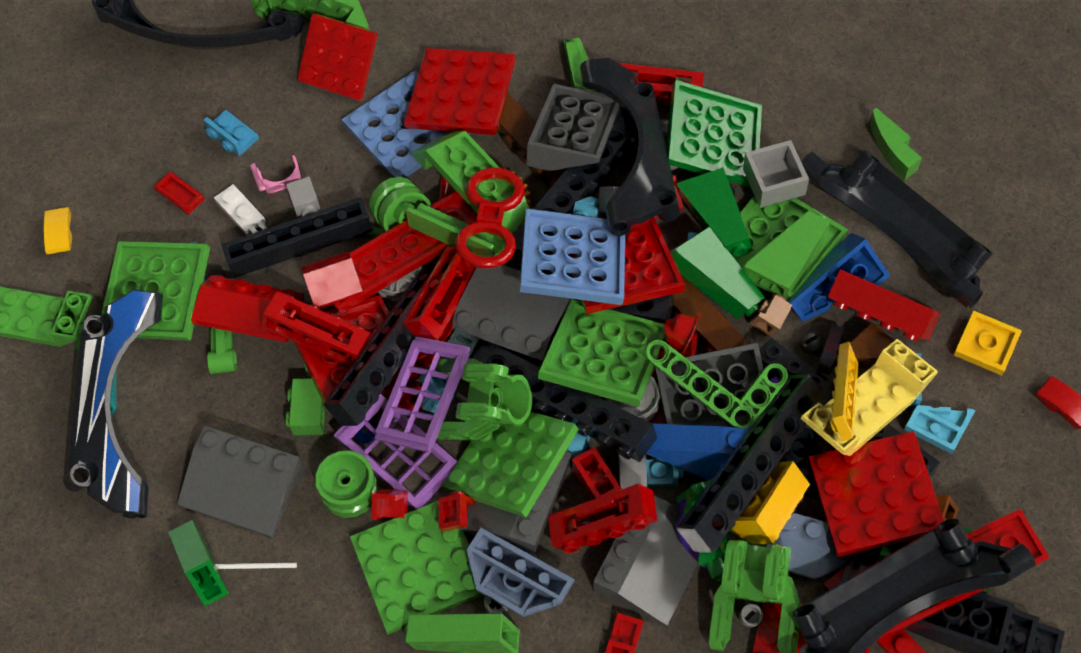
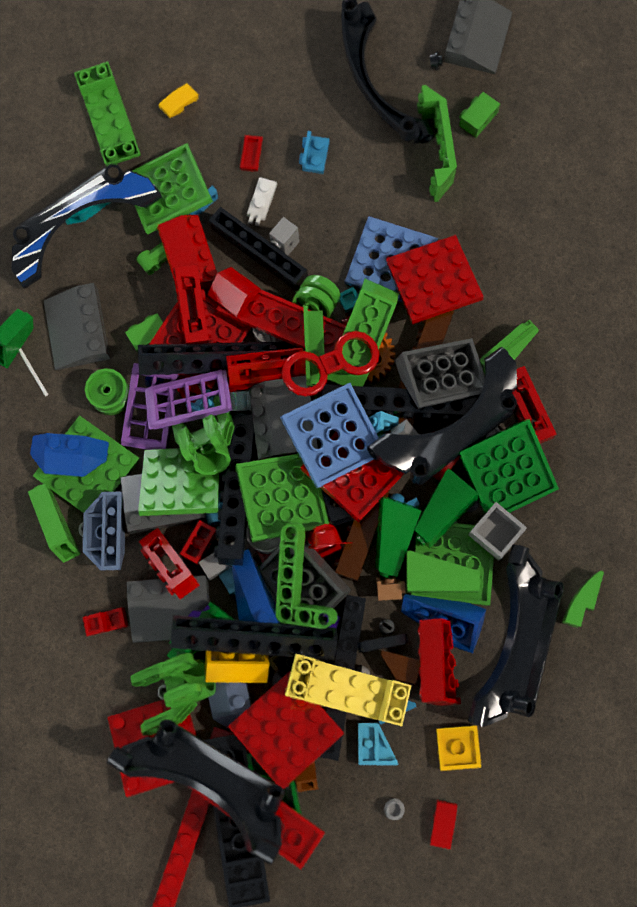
camera: 60 degrees right, 15 degrees up
(272, 187) = (287, 201): bright pink helmet -> none
(337, 56) = (409, 181): red plate -> none
(389, 503) = (112, 424): red panel -> none
(389, 569) = (68, 454): none -> blue wedge
(423, 182) = (348, 299): none -> teal plate
(454, 511) = (125, 467): red bracket -> none
(845, 392) = (336, 672): yellow plate -> none
(1022, 443) = (394, 809): none -> light grey plate

